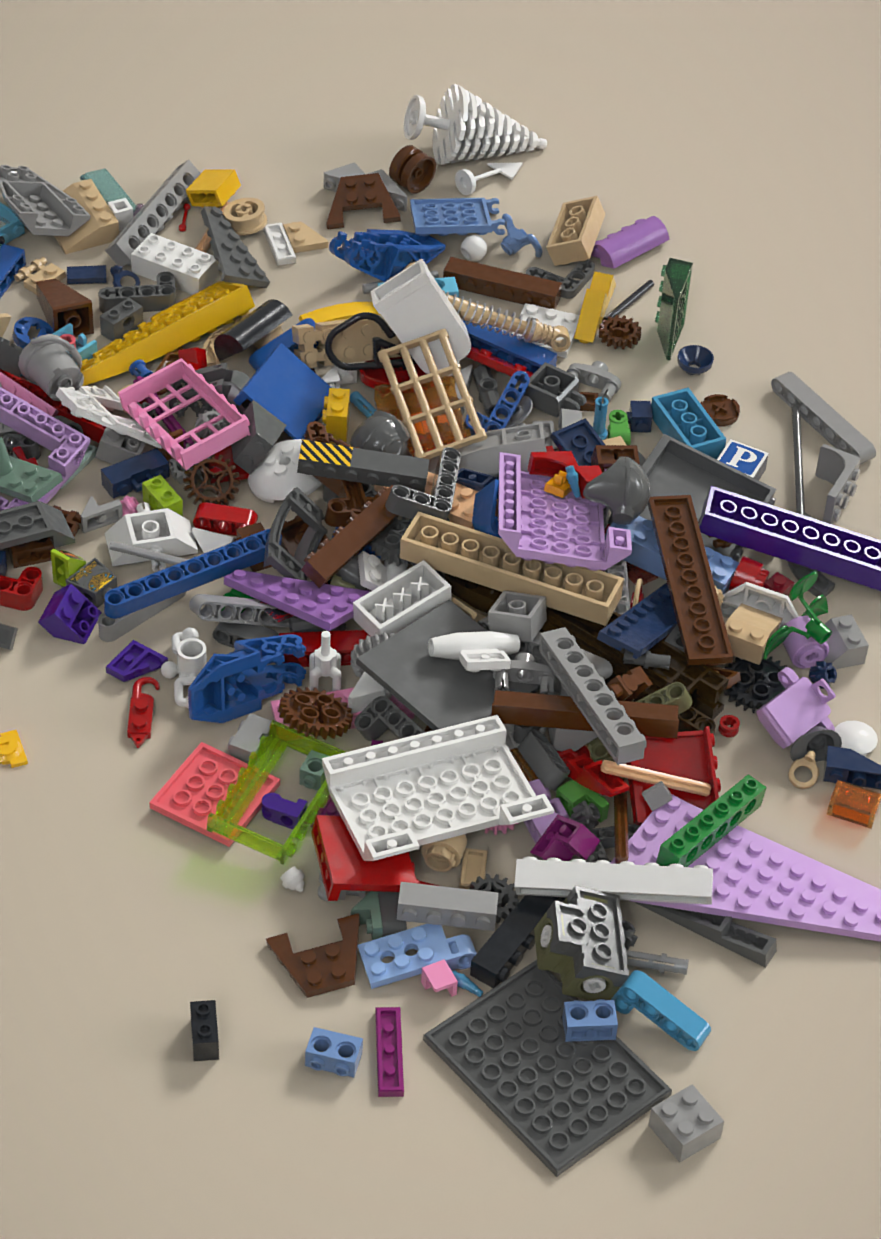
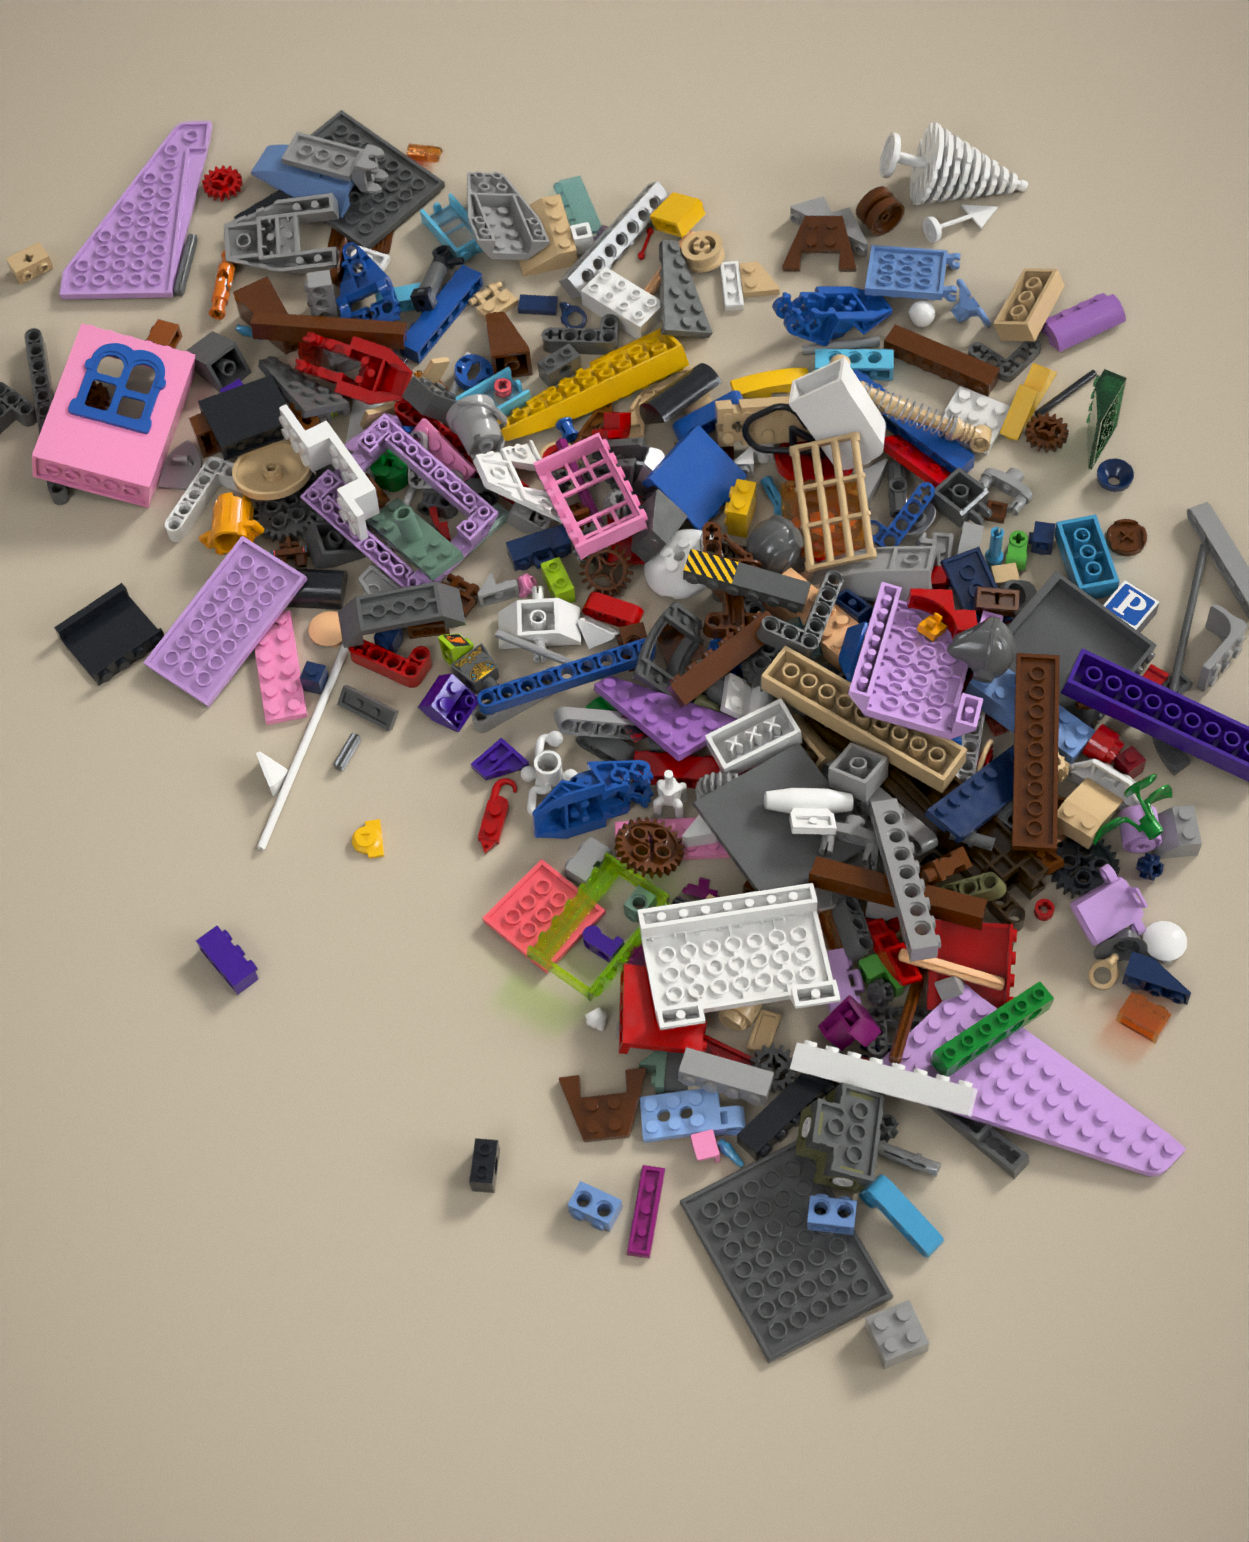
camera: 20 degrees right, 15 degrees up
(384, 715) = (715, 863): dark grey beam -> none
(572, 477) = (945, 622): dark azure piece -> none

